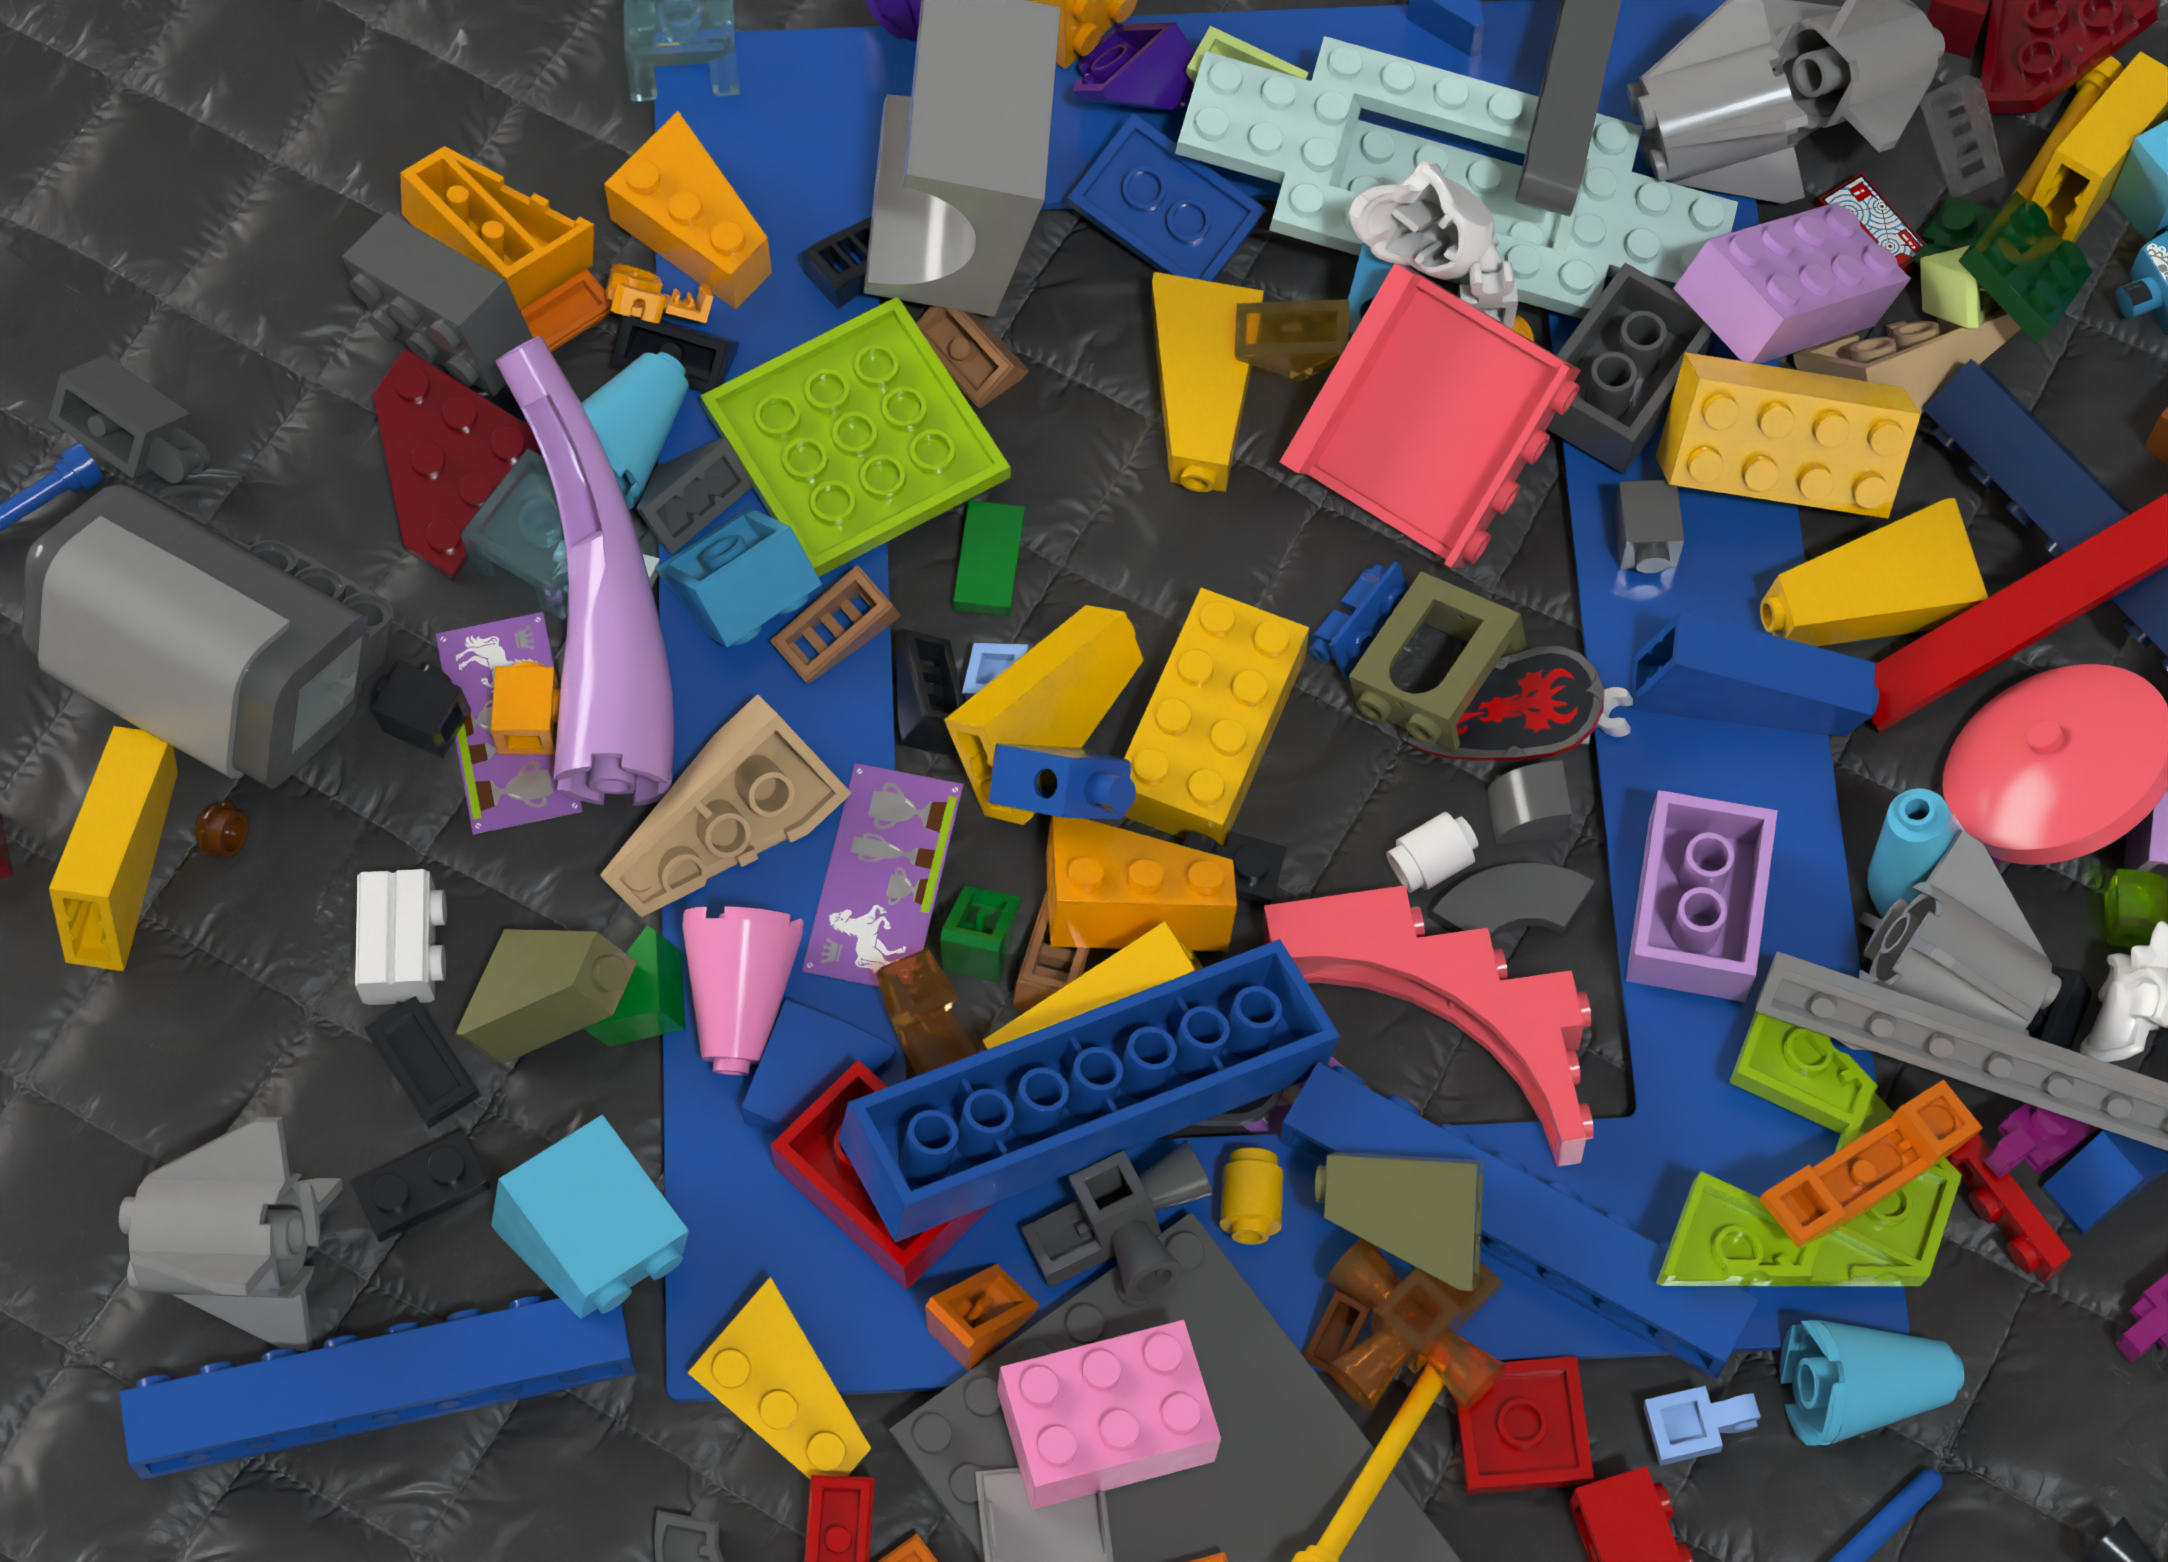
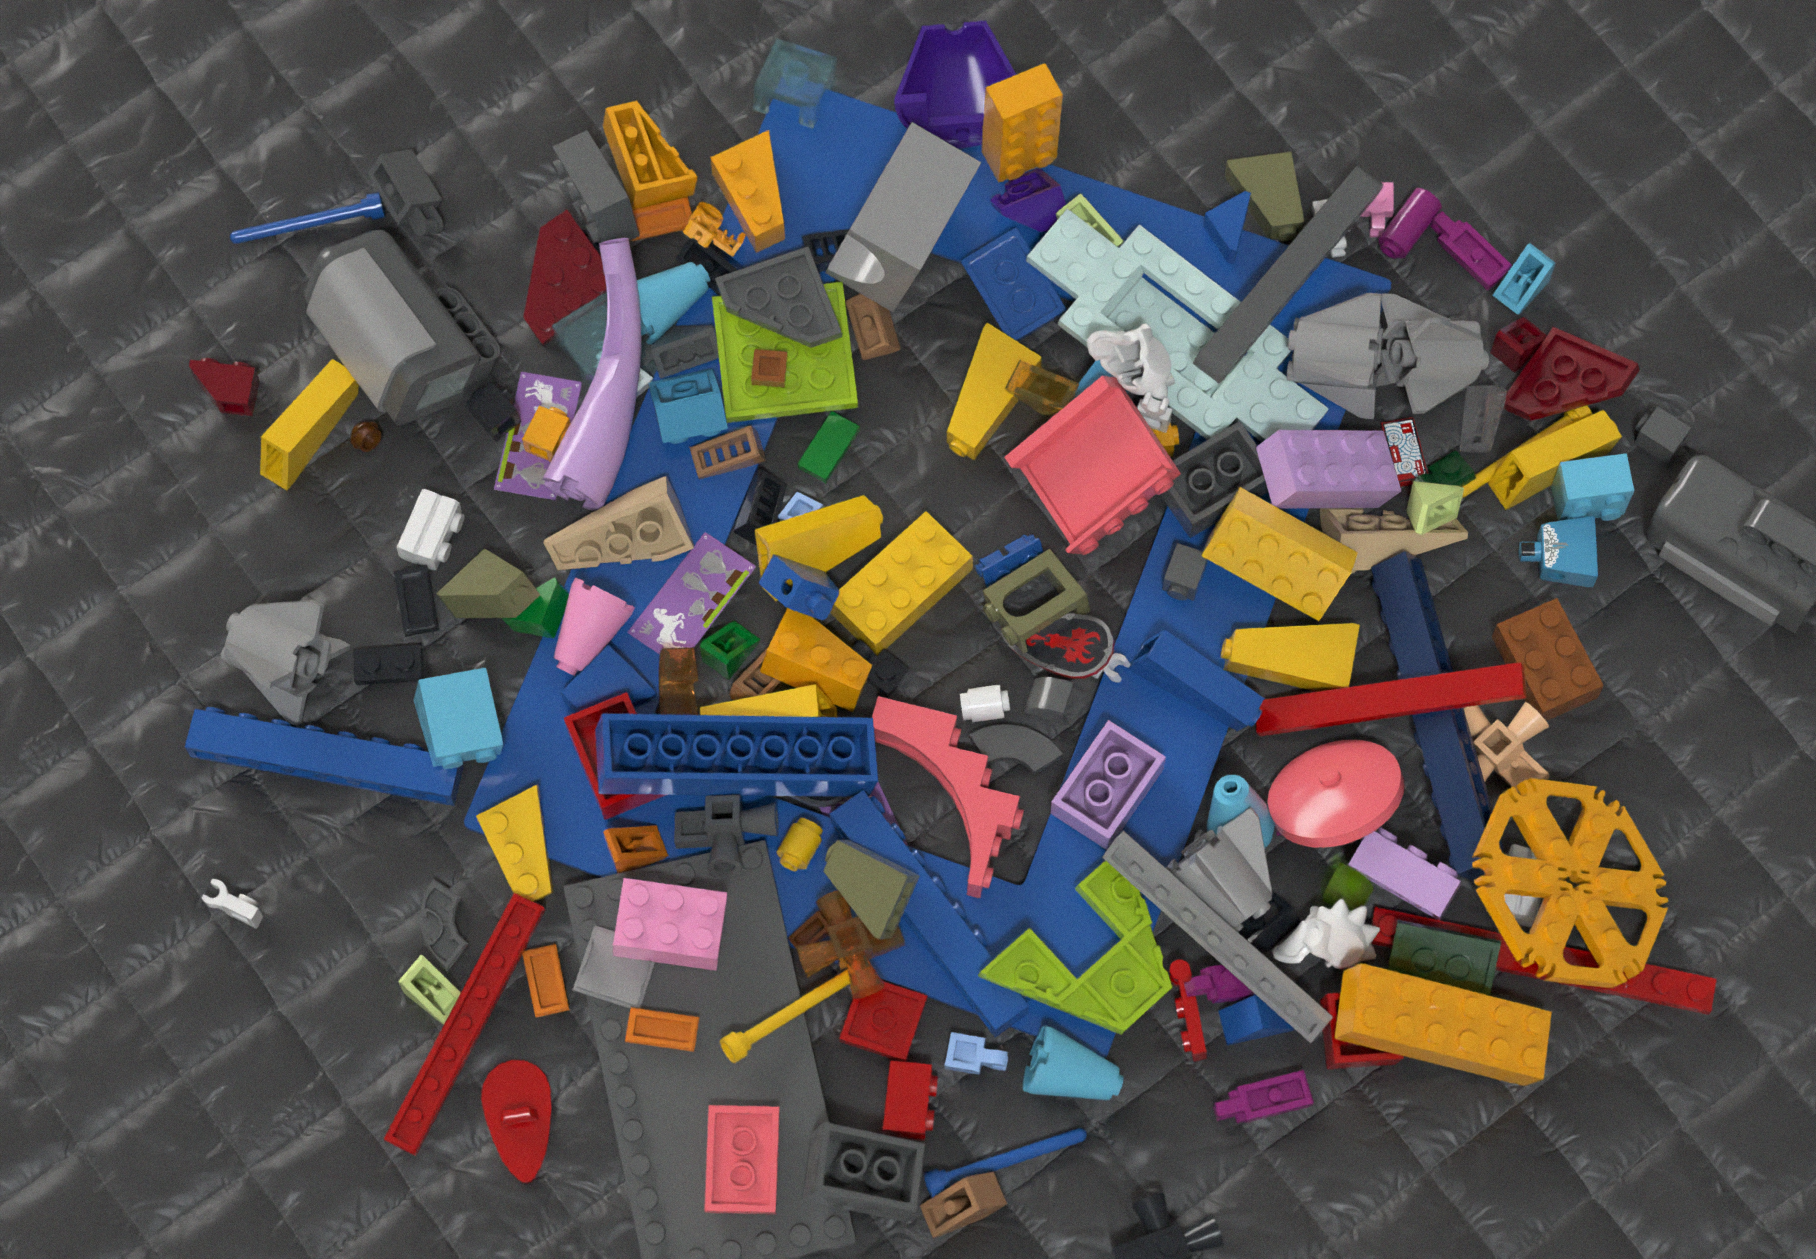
camera: 25 degrees right, 5 degrees up
(819, 350) = (782, 297): none -> dark grey plate
(847, 464) = (769, 368): none -> dark orange plate
(1872, 1166) = (1118, 963): orange slope -> none
(2026, 265) = (1467, 510): dark green plate -> none

